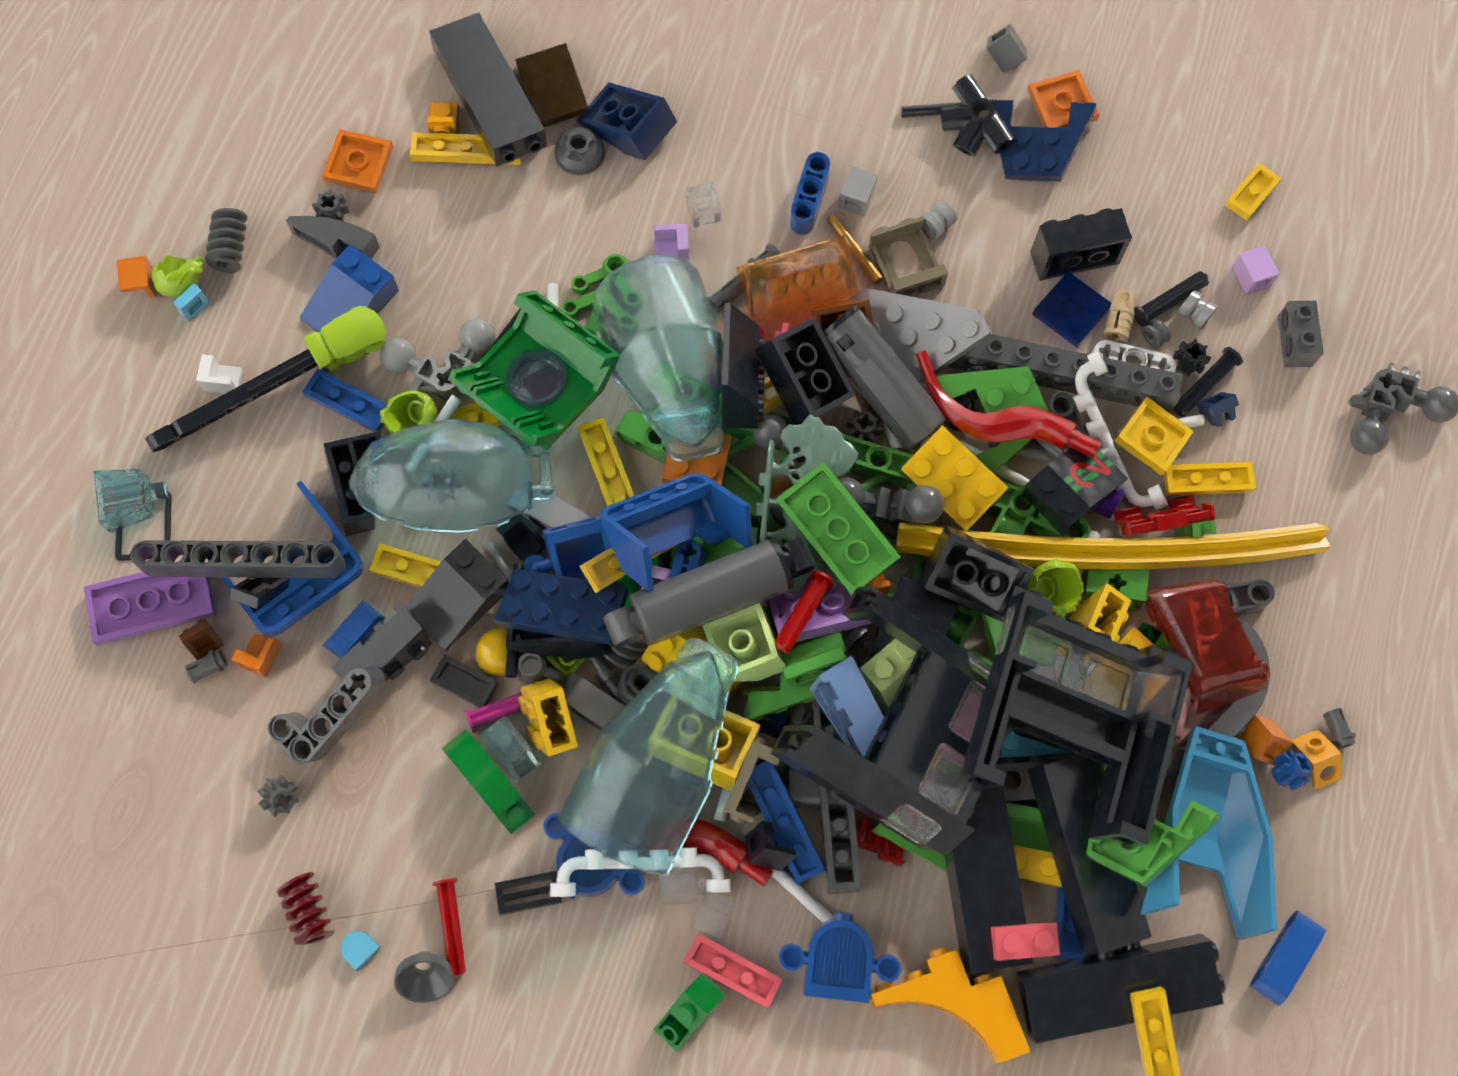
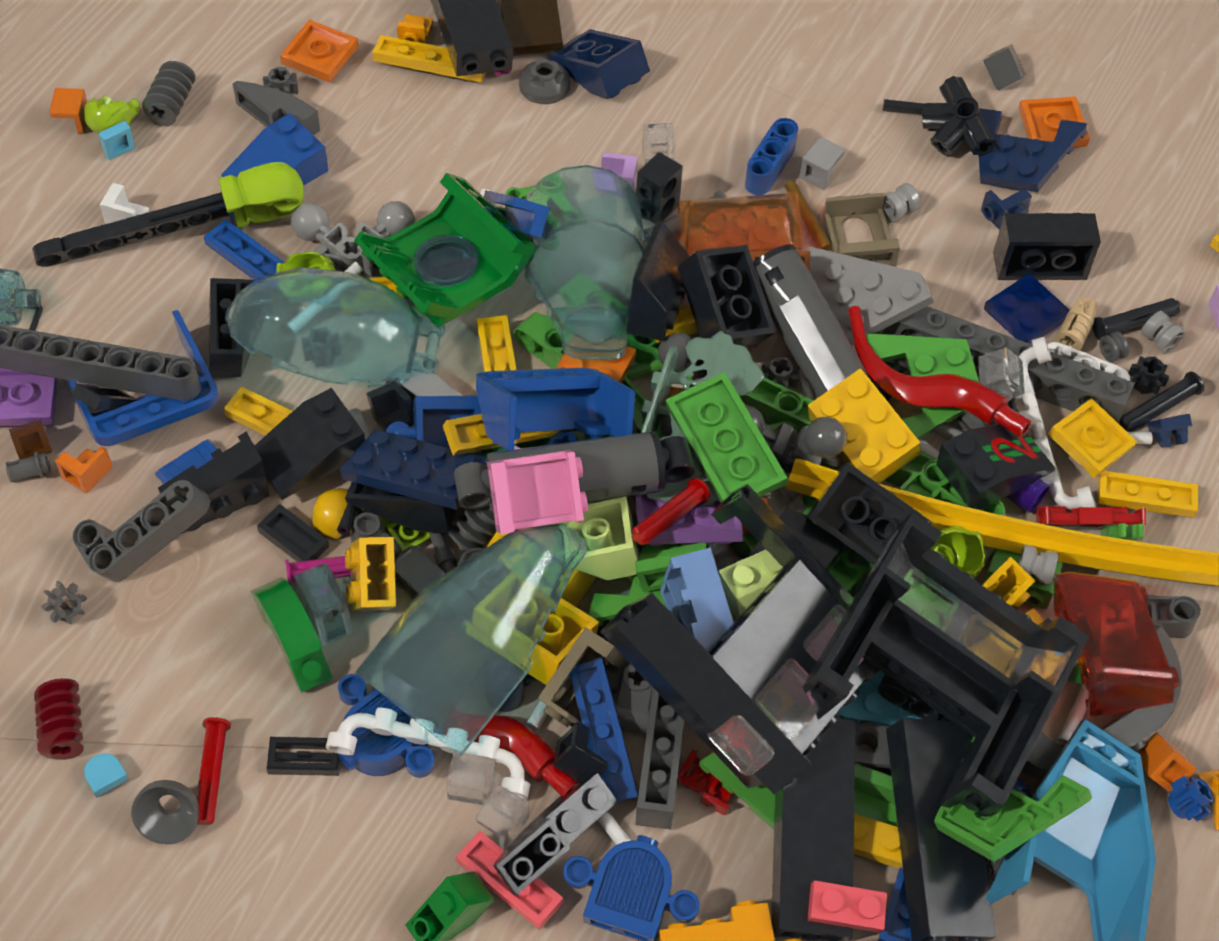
camera: 10 degrees right, 15 degrees down
(594, 316) = (523, 214): none -> blue fence
(683, 627) = (536, 490): none -> bright pink panel
(714, 254) = (659, 187): none -> black brick
(758, 926) = (552, 832): none -> slope
(1033, 211) = (995, 208): none -> dark blue bracket
(1066, 396) = (1002, 373): none -> clear brick
(1129, 581) = (1040, 565): none -> light grey wheel

